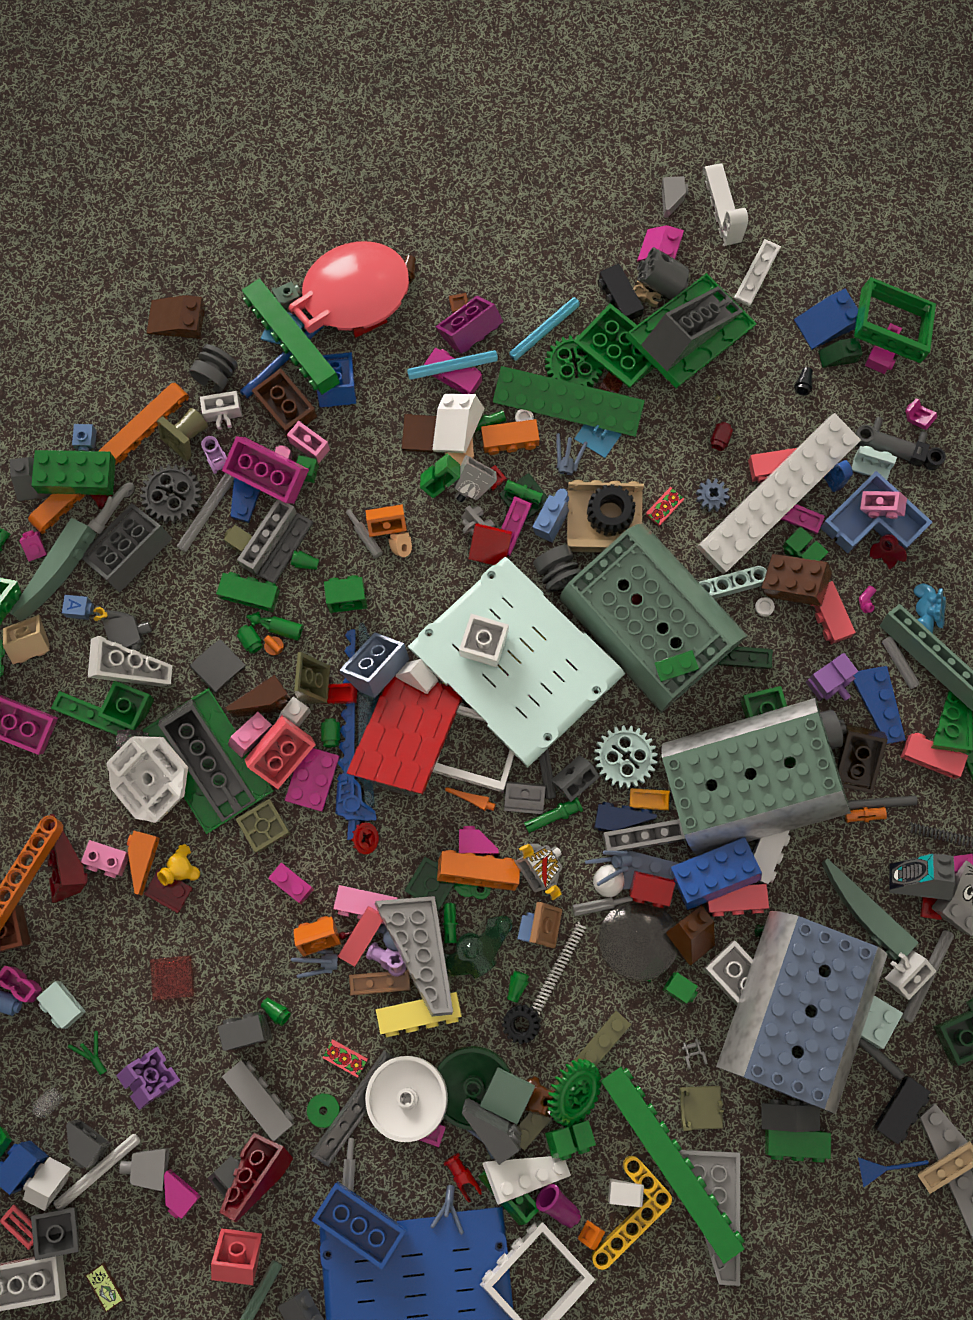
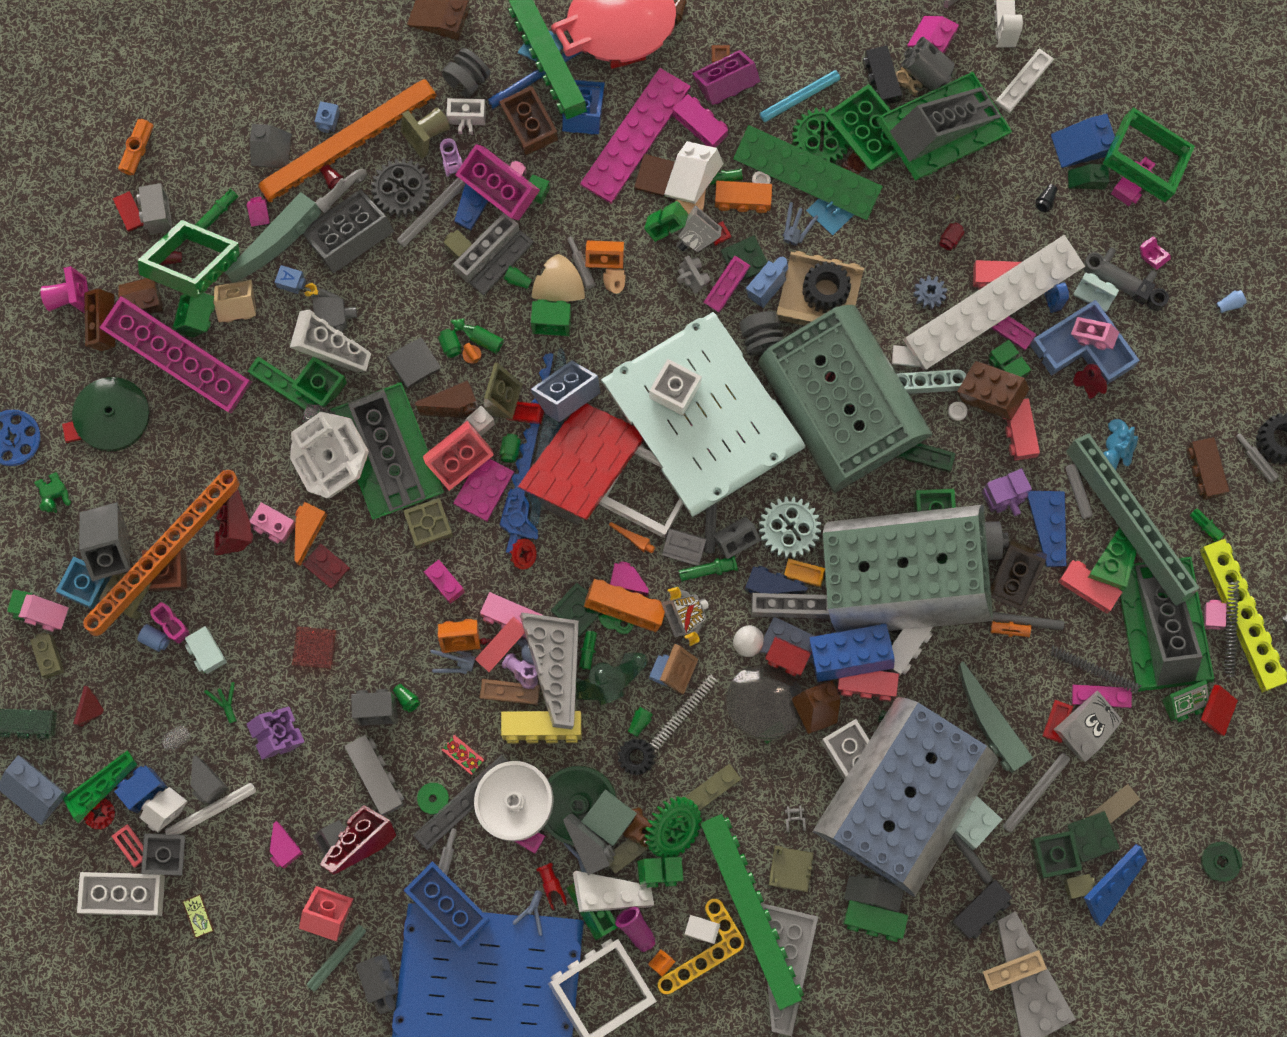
camera: 10 degrees right, 0 degrees up
(73, 472) = (312, 148): green brick -> none
(147, 1168) = (258, 816): light grey torso -> none
(178, 867) = (340, 546): yellow animal -> none
(248, 591) = (457, 297): green brick -> none
(249, 734) = (432, 433): bright pink brick -> none
(286, 299) = (551, 18): sand green brick -> none
(308, 442) = (544, 163): bright pink brick -> none
(346, 556) = (559, 281): none -> tan brick
(391, 399) = (635, 136): none -> dark pink plate
(417, 675) = (605, 409): white slope -> none
(453, 364) = (701, 114): medium azure axle -> none
(489, 544) = (700, 297): red tile -> none
(523, 492) = (744, 252): green pin -> none
(598, 905) = (733, 662): light grey axle -> none
(620, 860) = (764, 623): sand blue plant -> none
(664, 506) = (881, 294): tile -> none
(676, 666) = (855, 447): green plate -> none
(680, 988) = (794, 754): green piece -> none
(700, 563) = (904, 357): none -> white tile
(864, 600) = (1057, 424): dark pink arm -> none
(871, 1170) = (940, 961): blue piece -> none
(910, 974) = (1017, 785): white brick -> none
(924, 876) = (1052, 696): dark grey slope -> none

